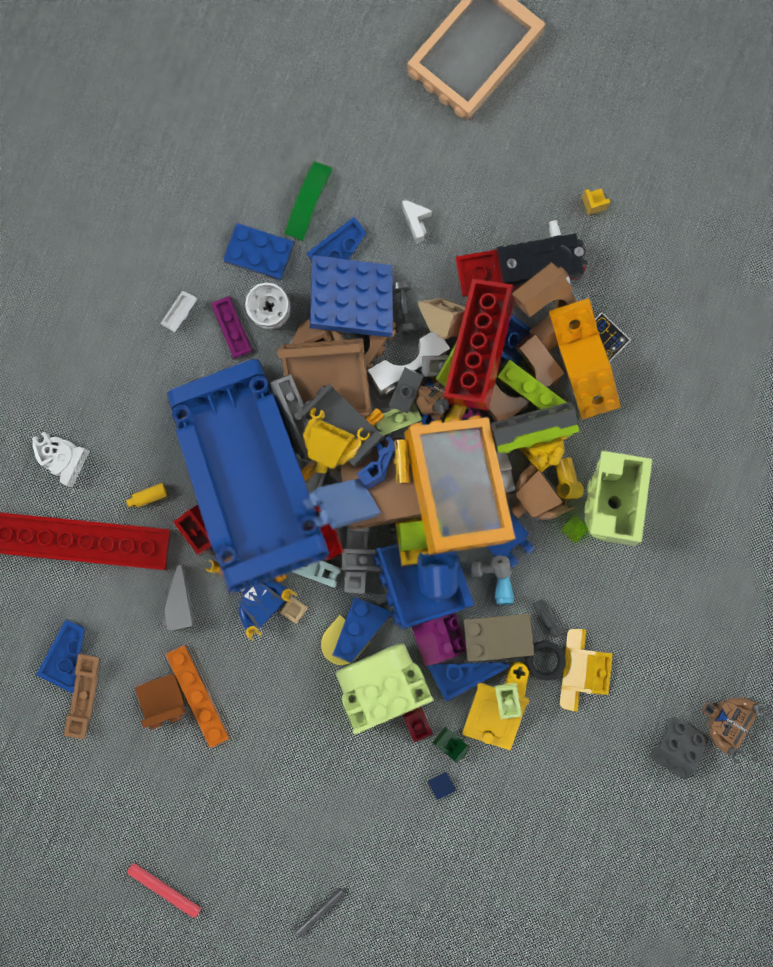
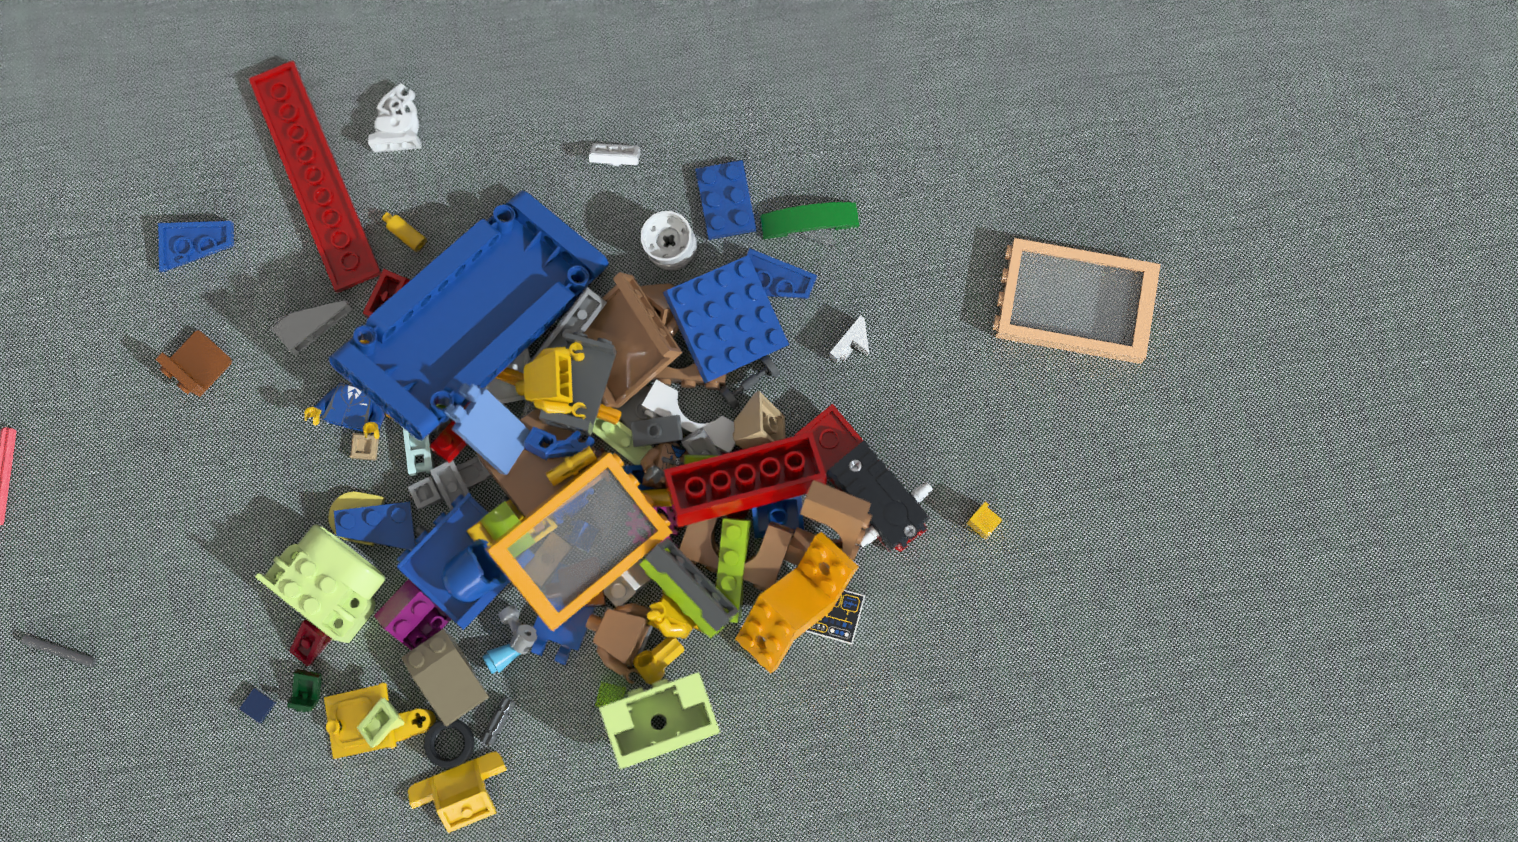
camera: 60 degrees right, 5 degrees down
(83, 696) = (160, 284): medium nougat slope -> none
(197, 696) = (221, 398): orange plate -> none
(231, 327) = (629, 217): magenta tile -> none
(460, 677) = (382, 660): blue wing -> none

